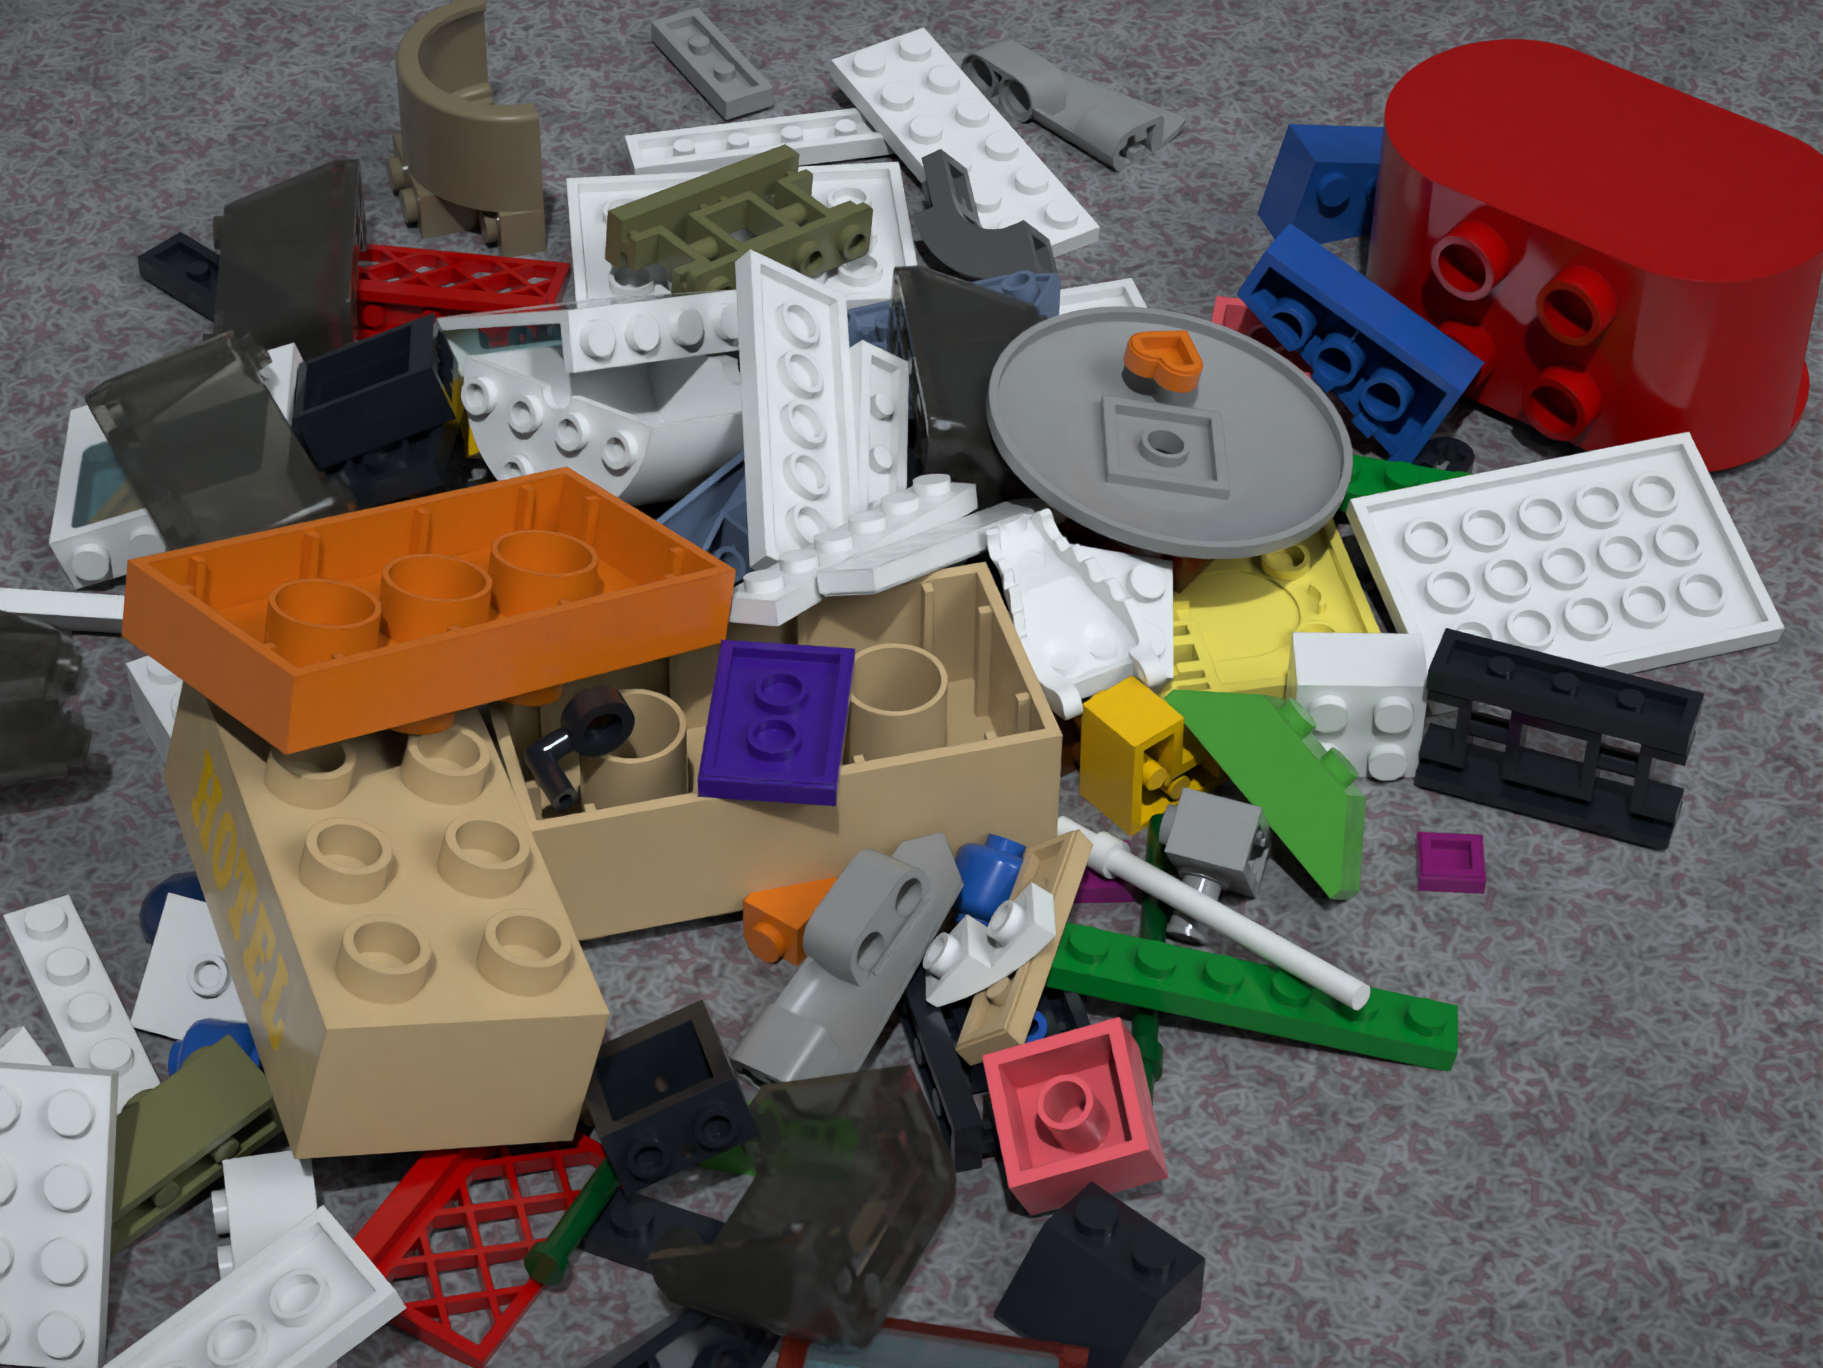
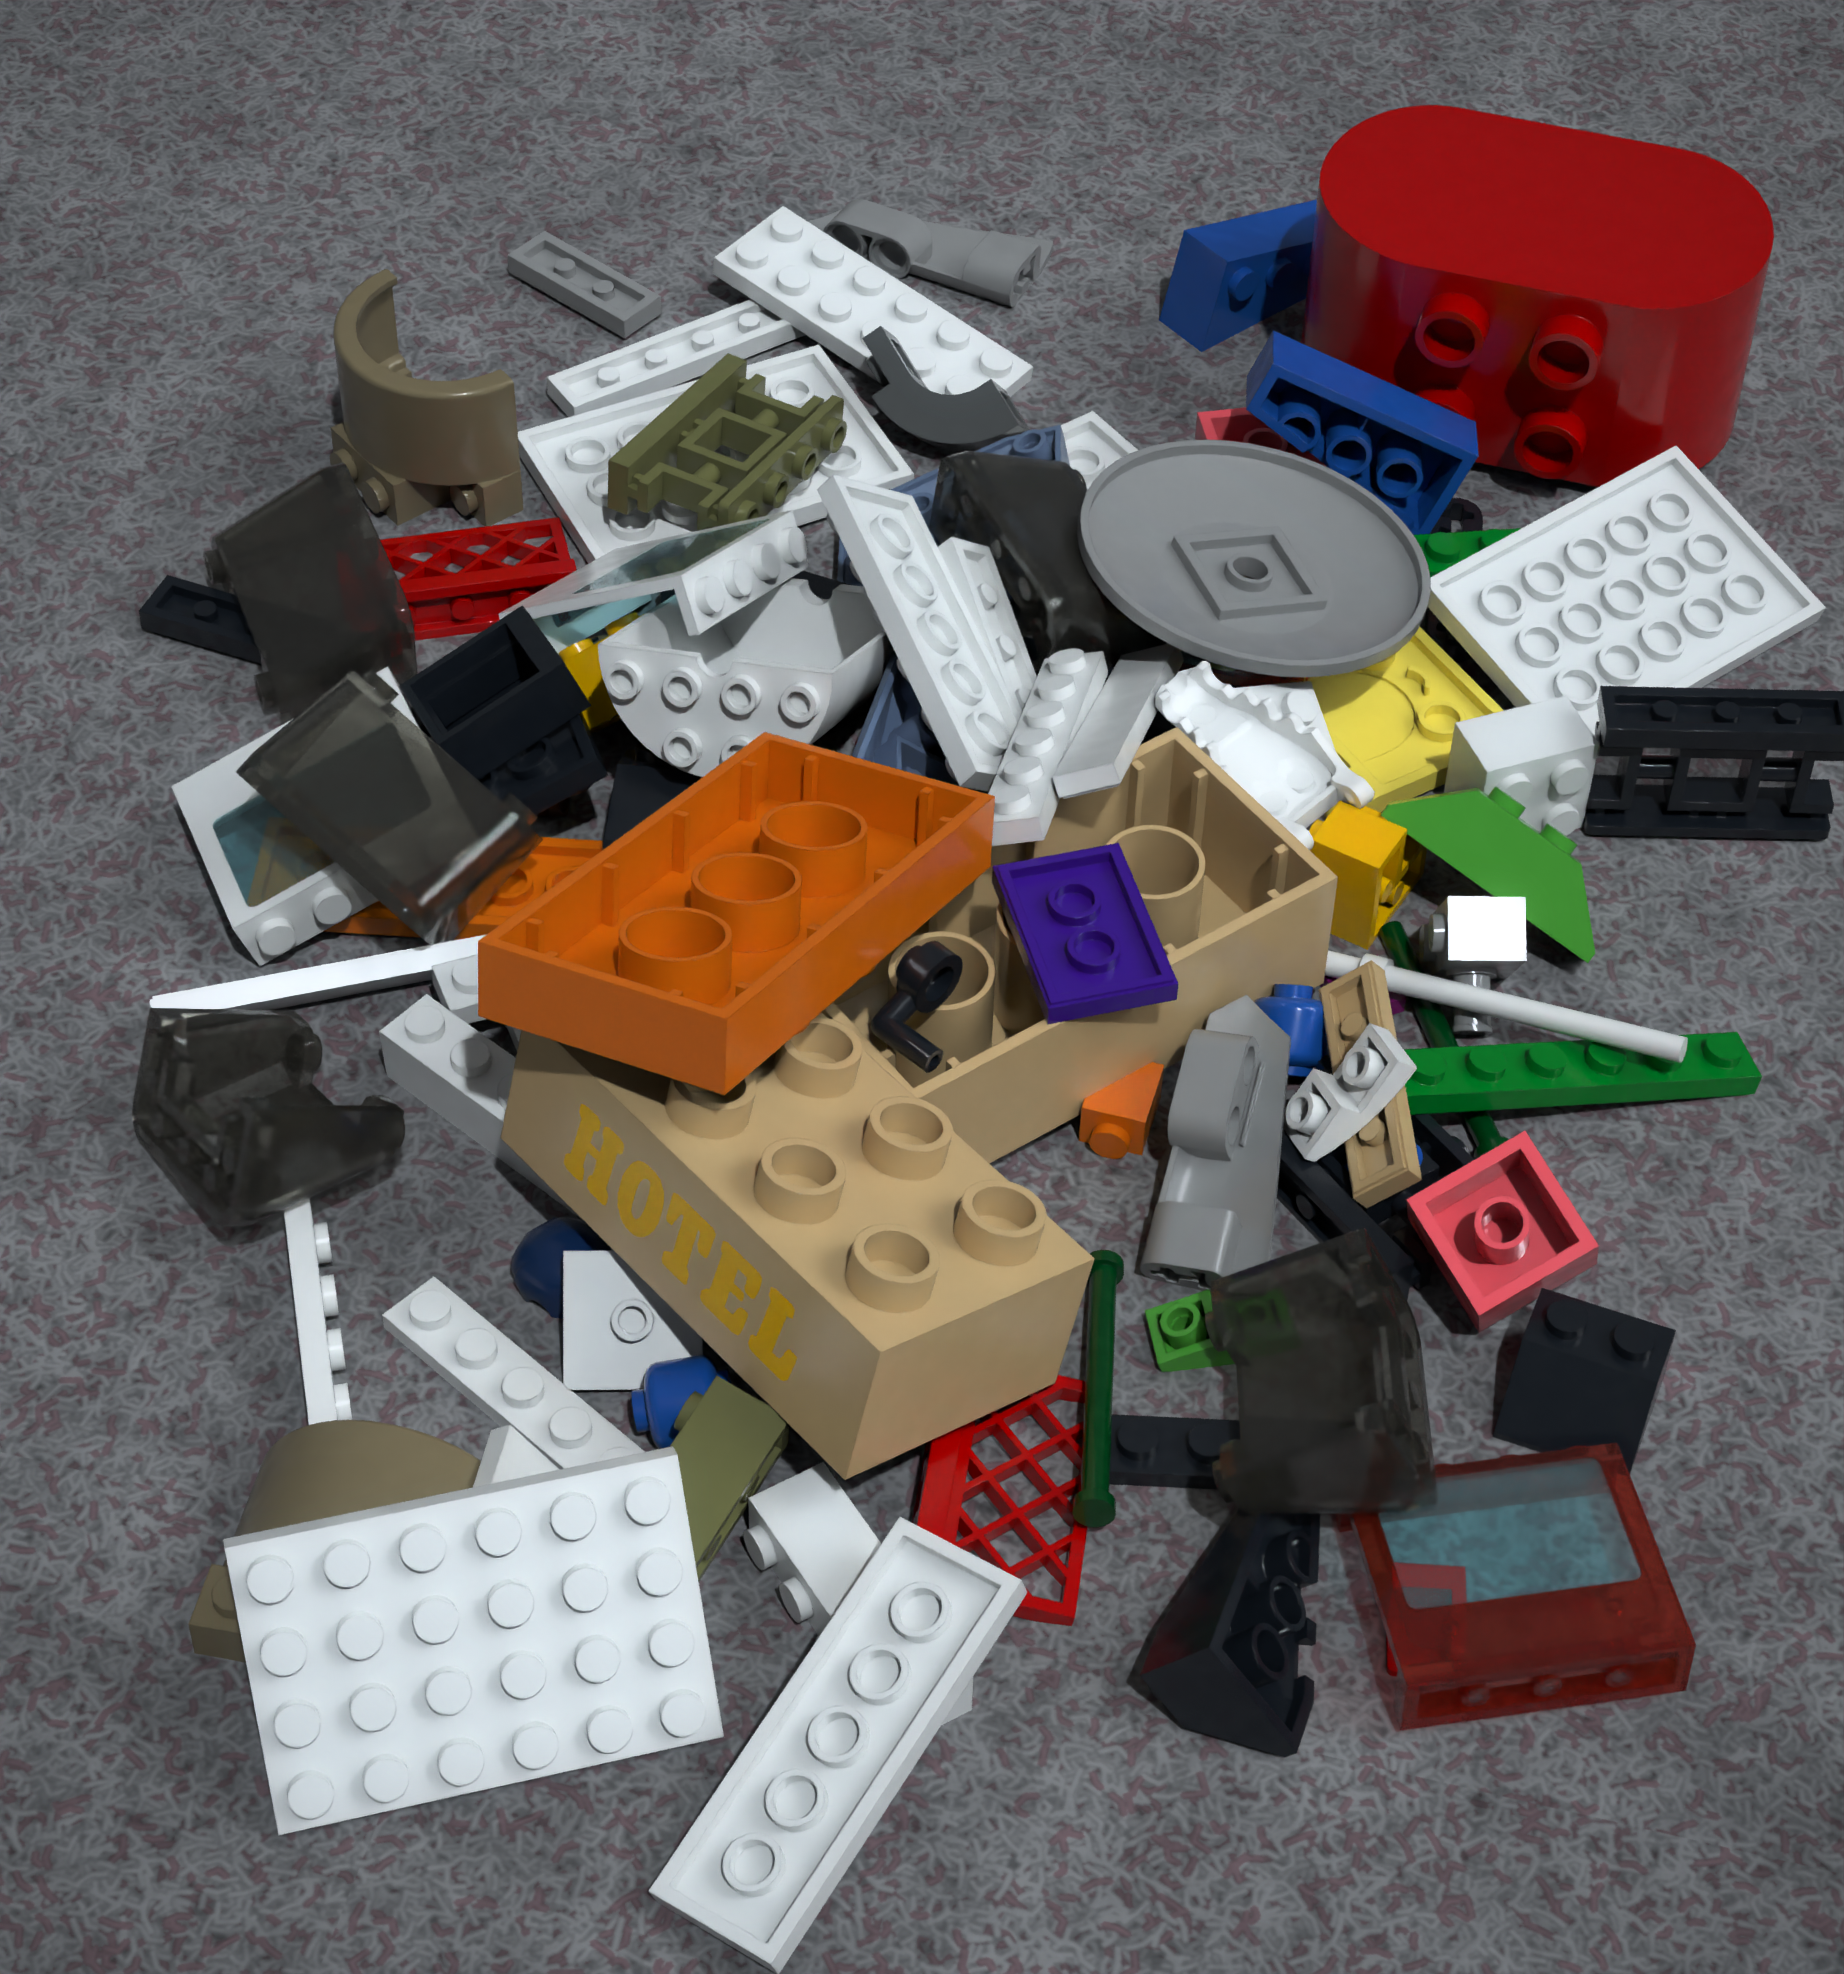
camera: 20 degrees left, 5 degrees up
(693, 1102) = (1150, 1371): black window -> none
(1166, 358) = (1222, 487): orange tile -> none
(1450, 862) = (1656, 900): magenta tile -> none

